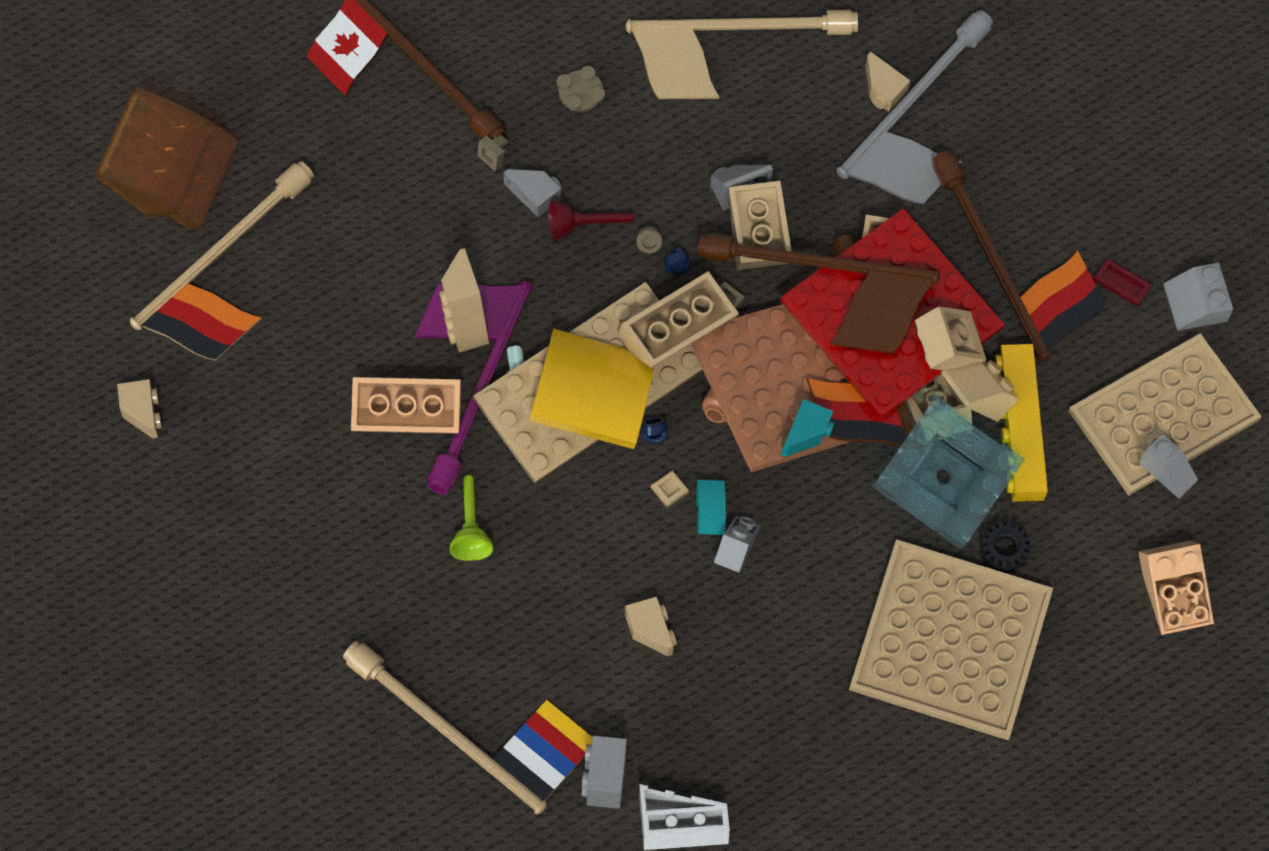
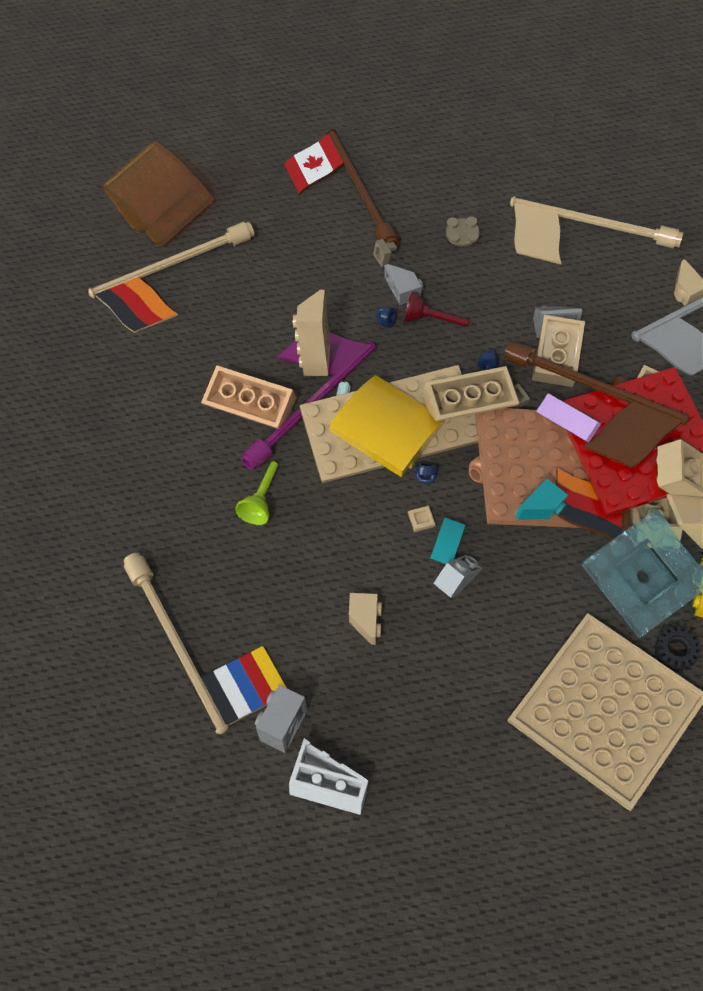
camera: 25 degrees right, 5 degrees down
(137, 406) = (66, 343): tan slope -> none
(532, 240) = (386, 316): none -> dark blue tile
(649, 239) = (473, 340): dark tan tile -> none
(801, 313) = (568, 417): none -> lavender tile

